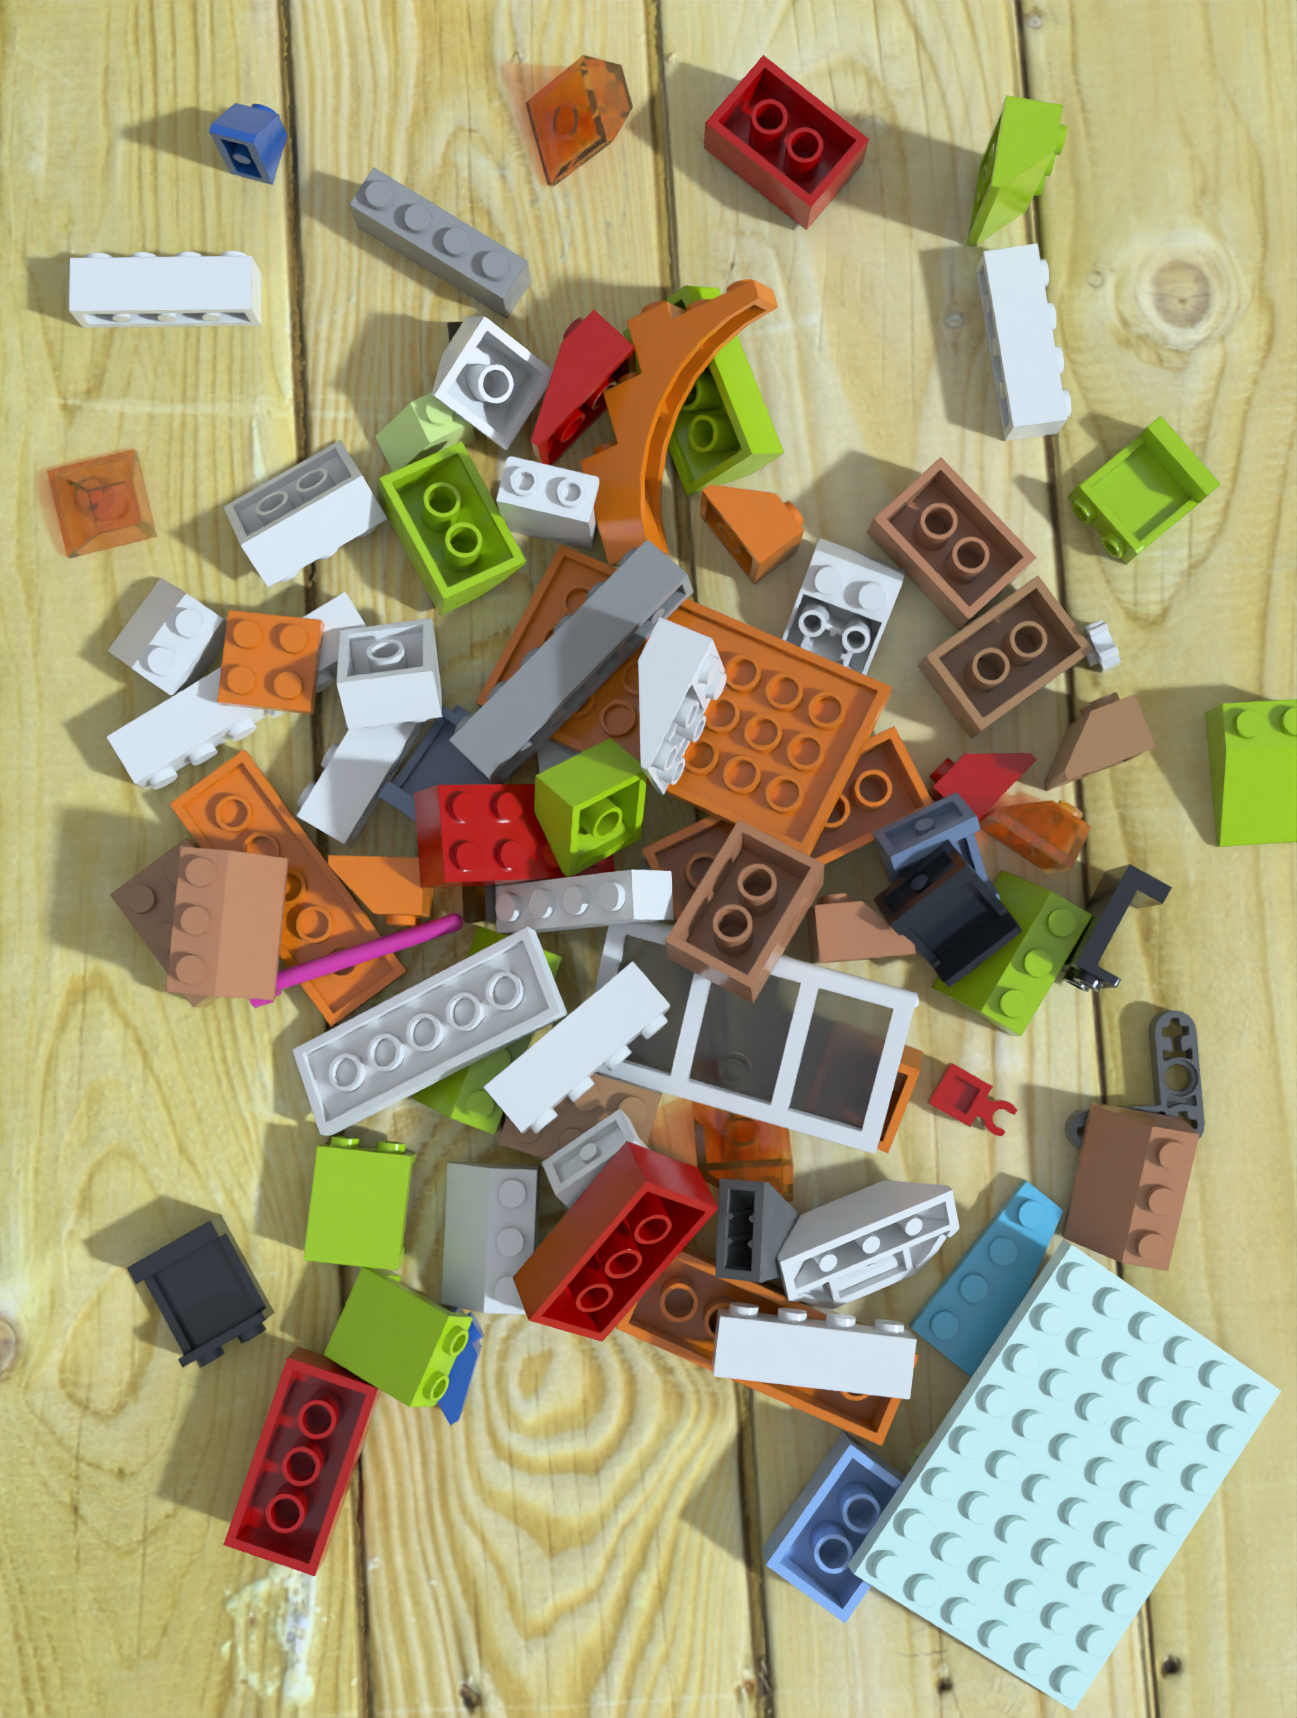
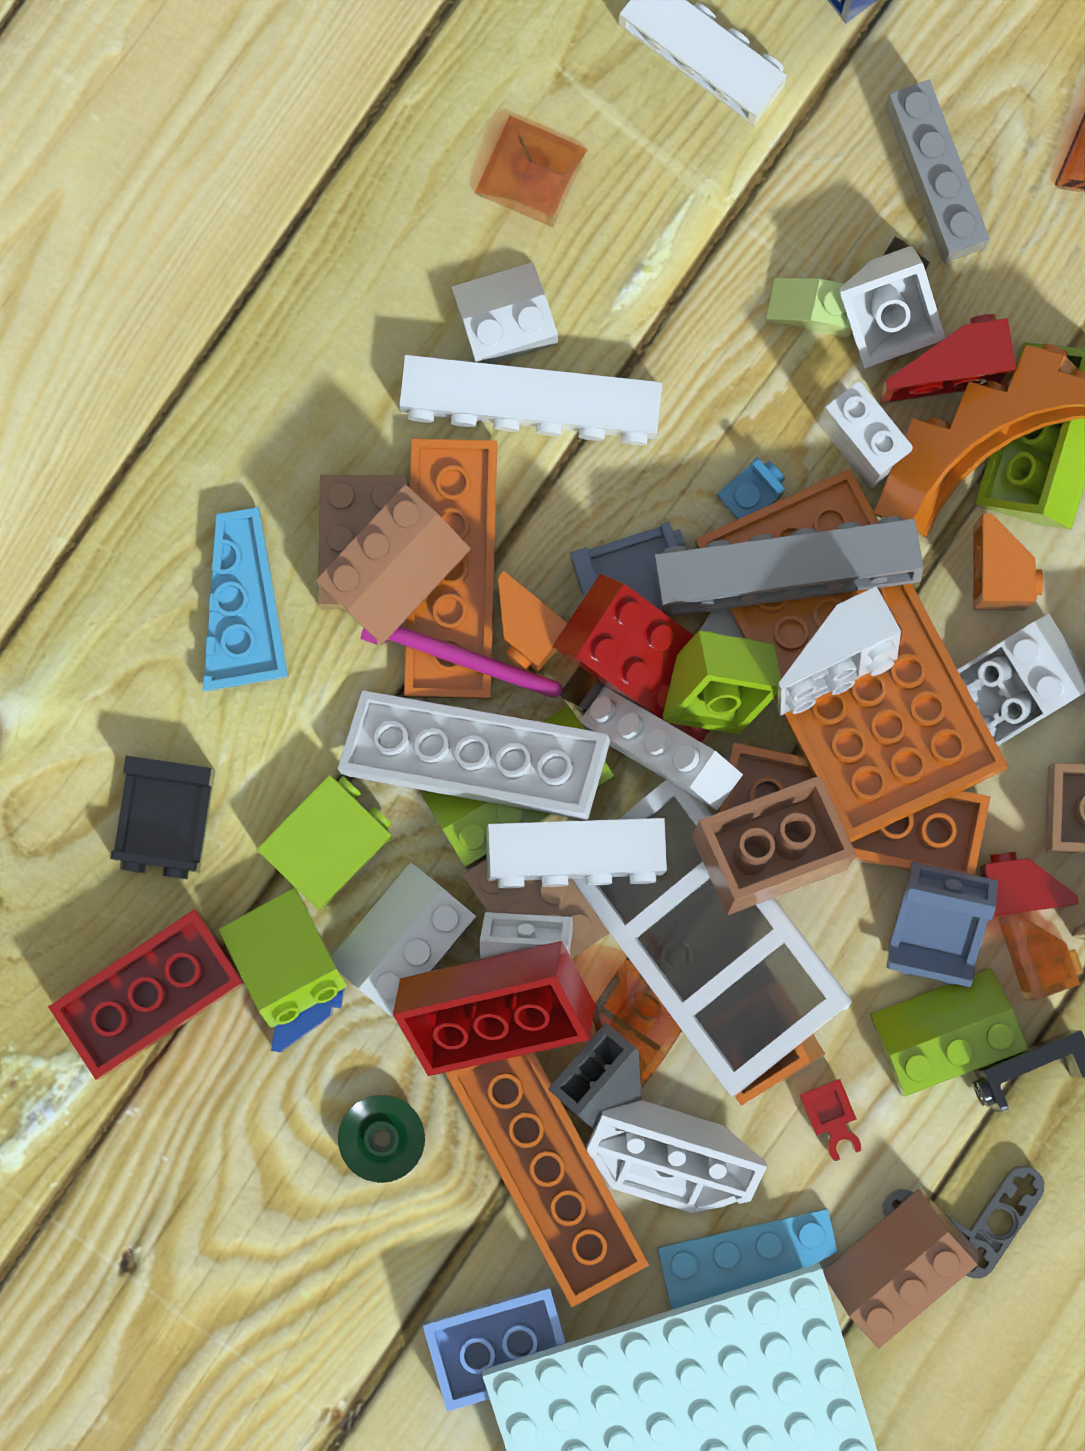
camera: 40 degrees right, 0 degrees up
(142, 1065) = (243, 623): none -> medium azure wing
(270, 662) = (568, 394): orange plate -> none
(304, 514) = (677, 297): white slope -> none
(355, 776) = (588, 515): white brick -> none
(389, 674) = (649, 470): white slope -> none
(449, 527) = (777, 393): lime slope -> none
(492, 623) = (753, 489): none -> dark azure bracket
(598, 1445) = (358, 1144): none -> dark green dish
(813, 1351) = (575, 1199): white brick -> none
(851, 932) = (840, 924): nougat slope -> none
(948, 913) = (921, 964): black panel -> none

